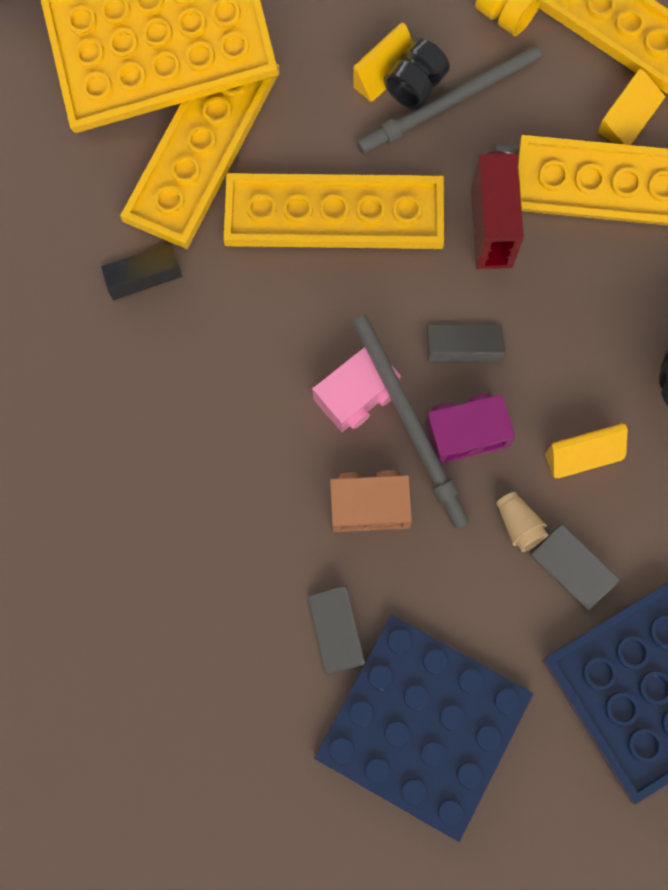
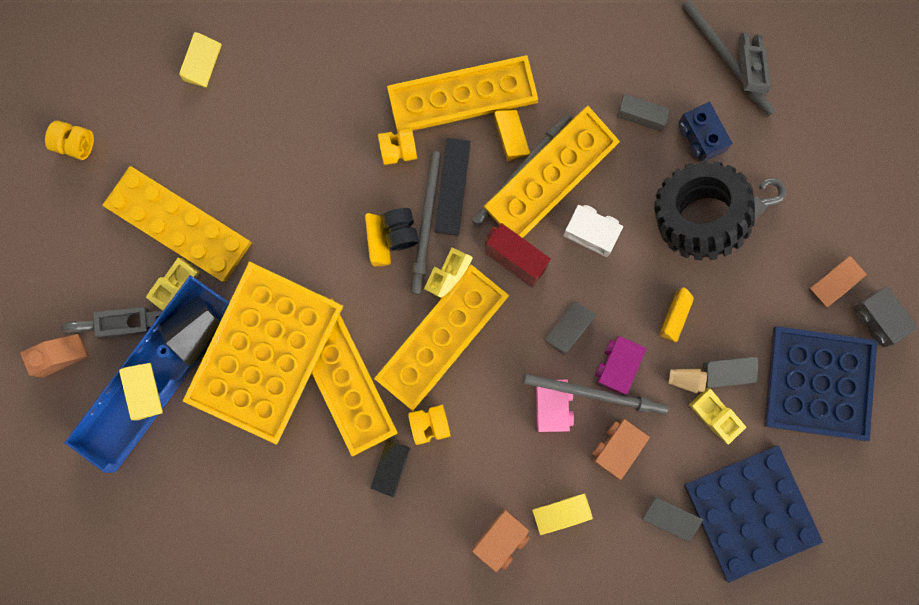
camera: 50 degrees left, 5 degrees up
(152, 448) = (500, 541): none -> nougat brick
(217, 265) = (429, 424): none -> yellow wheel
(239, 496) = (562, 514): none -> light yellow slope
(400, 162) = (444, 279): none -> light yellow slope
(506, 592) = (717, 416): none -> light yellow slope
(515, 96) = (452, 186): none -> black tile
(602, 278) = (593, 230): none -> white brick

